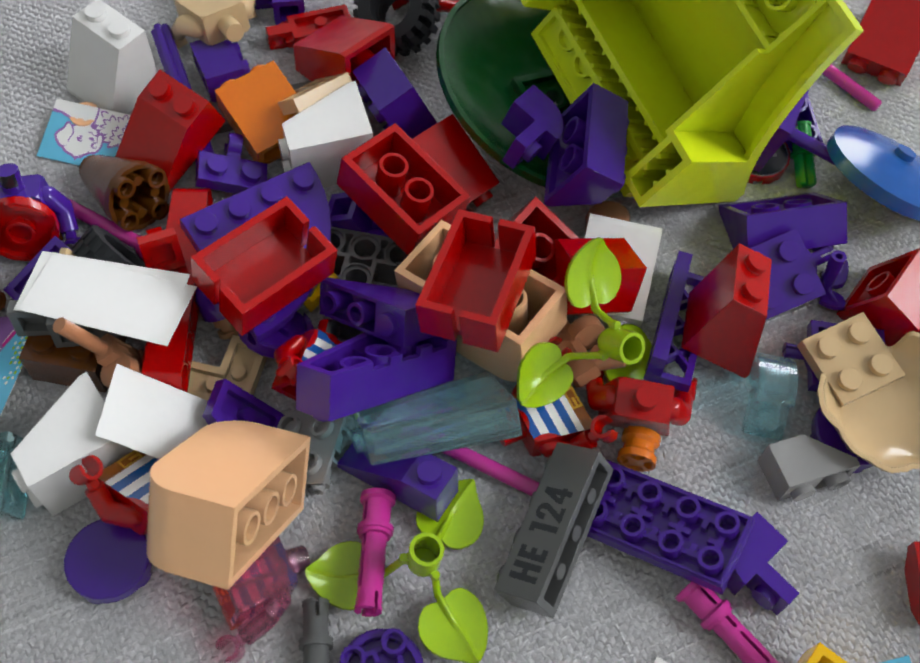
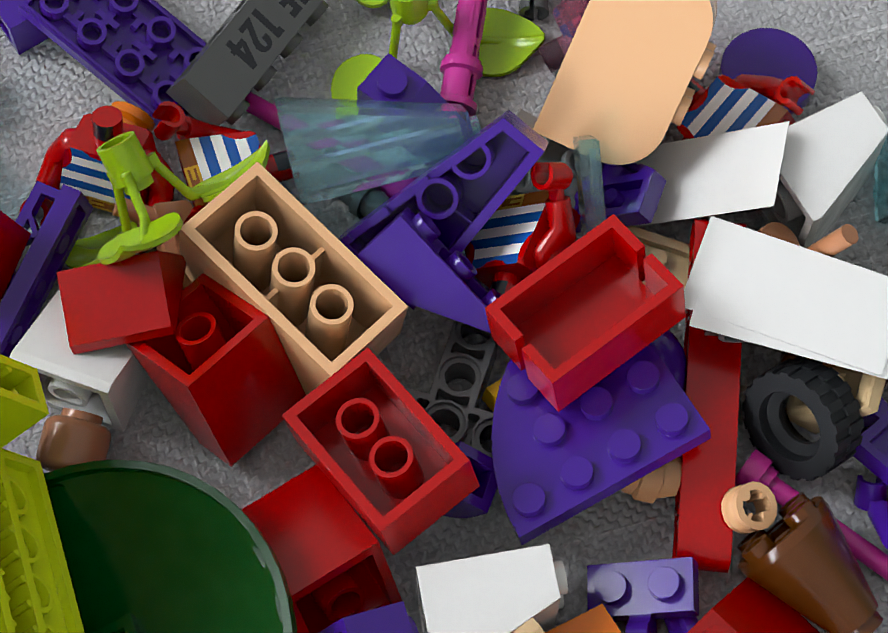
camera: 170 degrees left, 5 degrees up
(158, 206) = (764, 504): none -> light nougat bush
(161, 249) = (737, 407): red tile -> none
(263, 394) = (589, 182): none -> clear light blue tile
(474, 283) = (298, 220): red piece -> none
(535, 124) = (152, 523): dark purple brick -> none
(590, 152) = (88, 472): dark purple slope -> none

